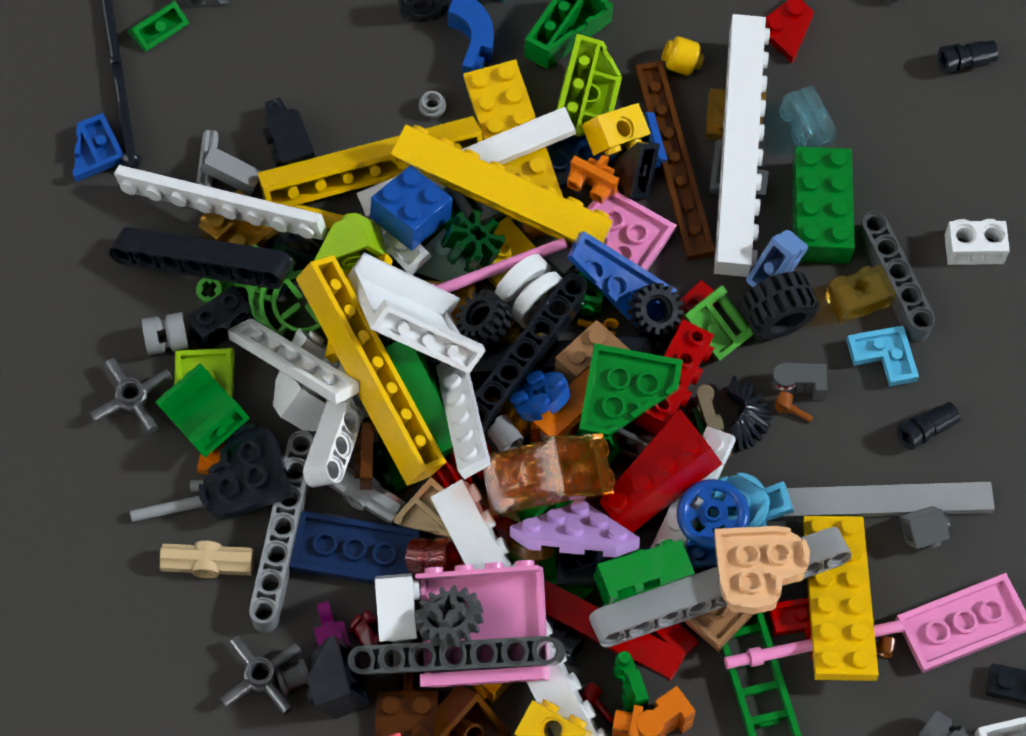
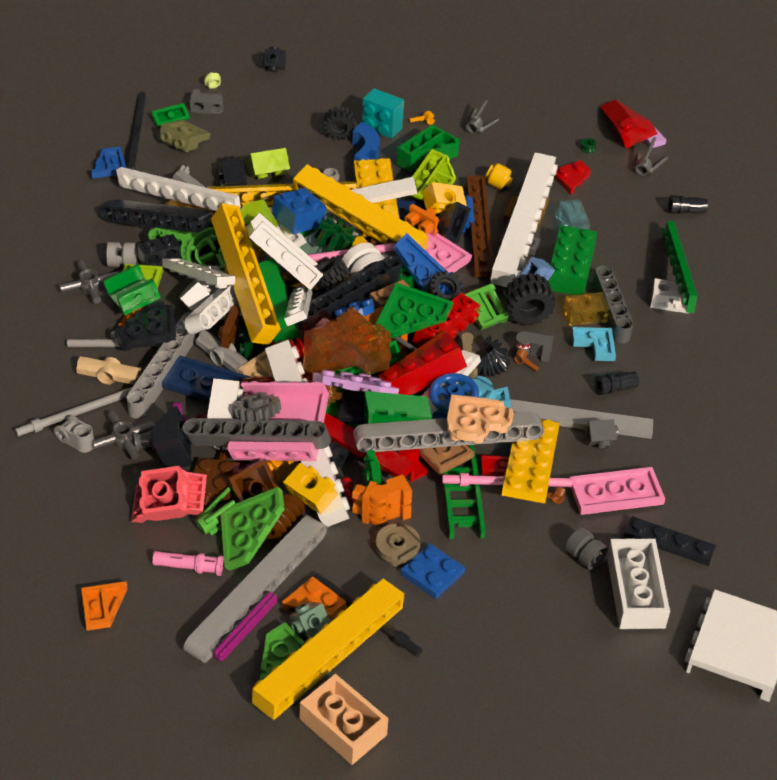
camera: 10 degrees right, 20 degrees down
(132, 680) = (37, 425): none -> light grey bar
(187, 684) = (76, 434): none -> light grey piece
(191, 67) = (183, 135): none -> olive plate
(333, 100) = (267, 162): none -> lime slope
(984, 199) = (680, 267): none -> green plate

